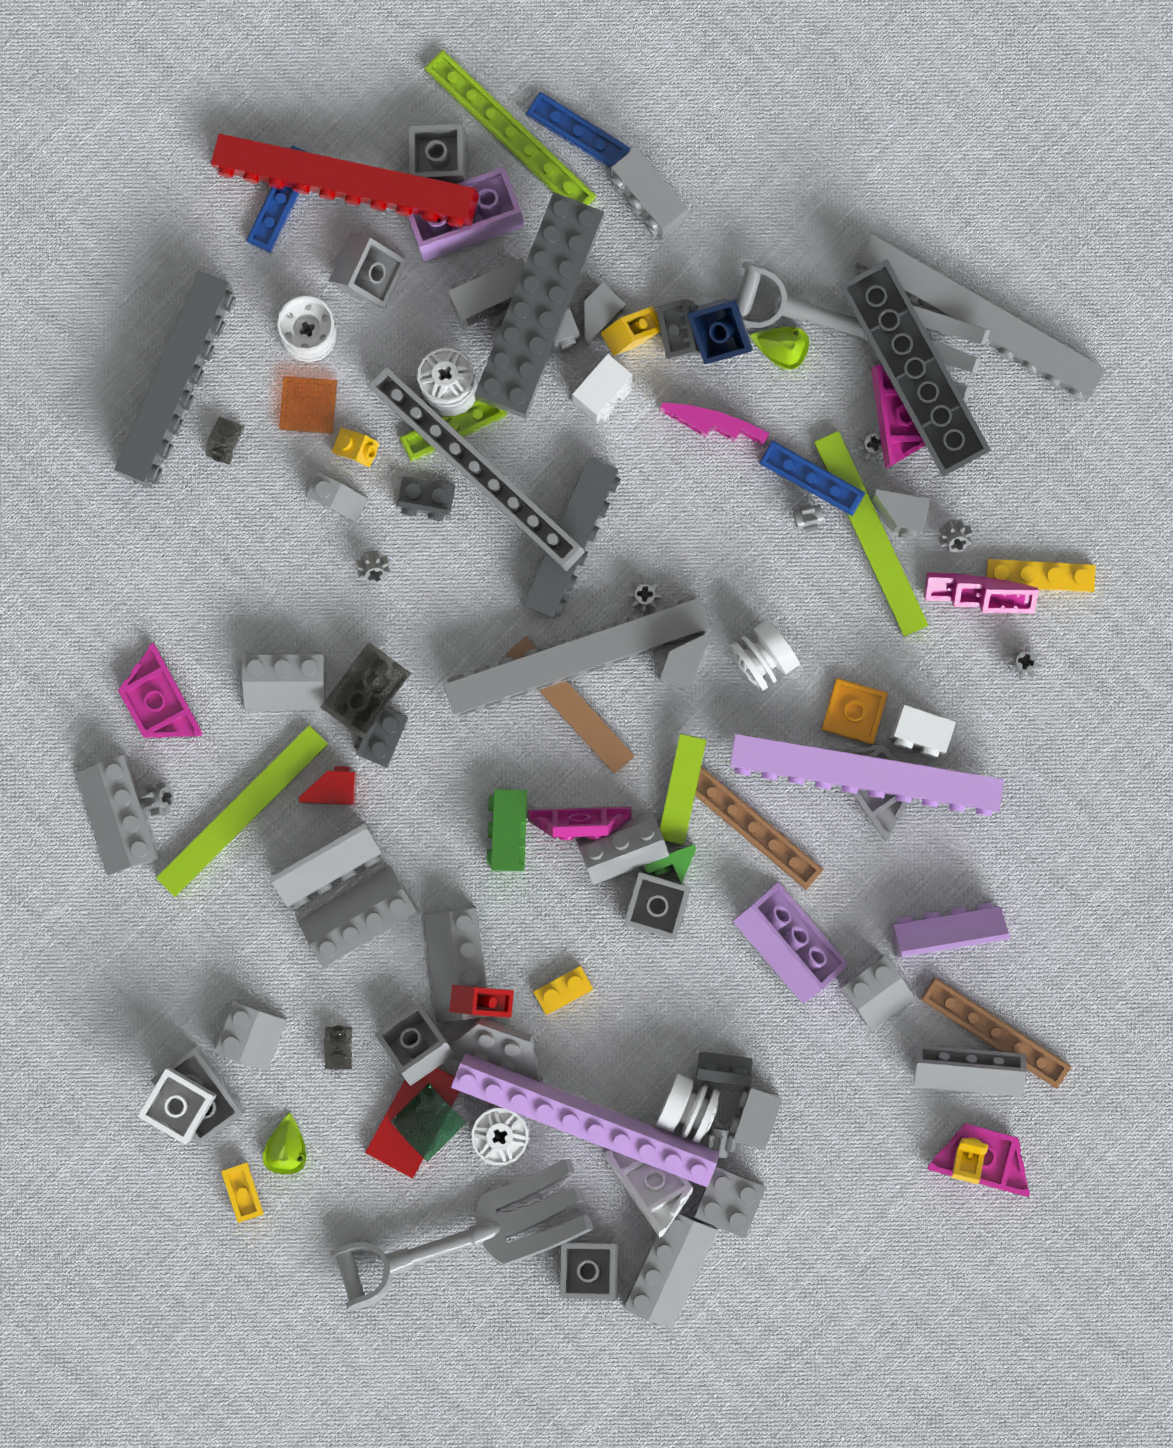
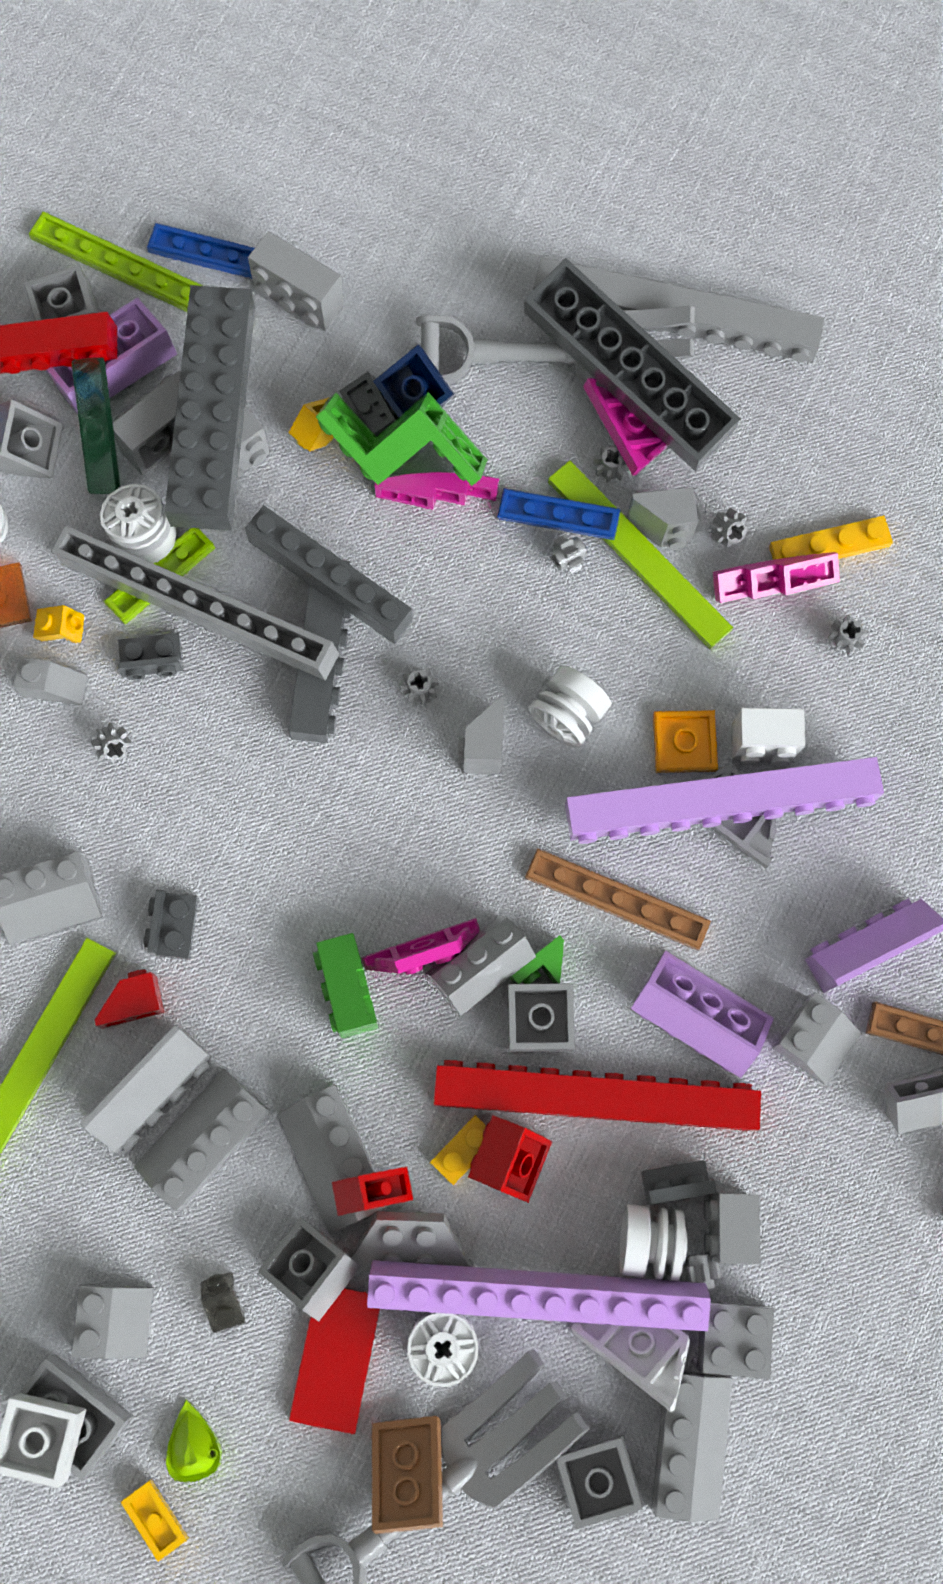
camera: 20 degrees left, 10 degrees down
(365, 690) = (136, 876): clear smoke slope -> none
(428, 1122) = (353, 1359): clear green slope -> none
(436, 284) = (96, 425): none -> clear green piece
(444, 1219) = (406, 1475): none -> medium nougat plate
(576, 658) = (361, 774): light grey brick -> none
(581, 717) = (374, 828): medium nougat tile -> none
(596, 480) = (329, 574): none -> dark grey brick
(597, 1009) = (509, 1158): none -> red slope
(600, 311) = (280, 408): light grey slope -> none
(602, 389) = (307, 484): white brick -> none
(682, 788) = (526, 877): lime tile -> none
(683, 983) = (598, 1097): none -> red brick
(695, 377) = (402, 439): none -> bright green bracket
(782, 346) = (485, 395): lime piece -> none

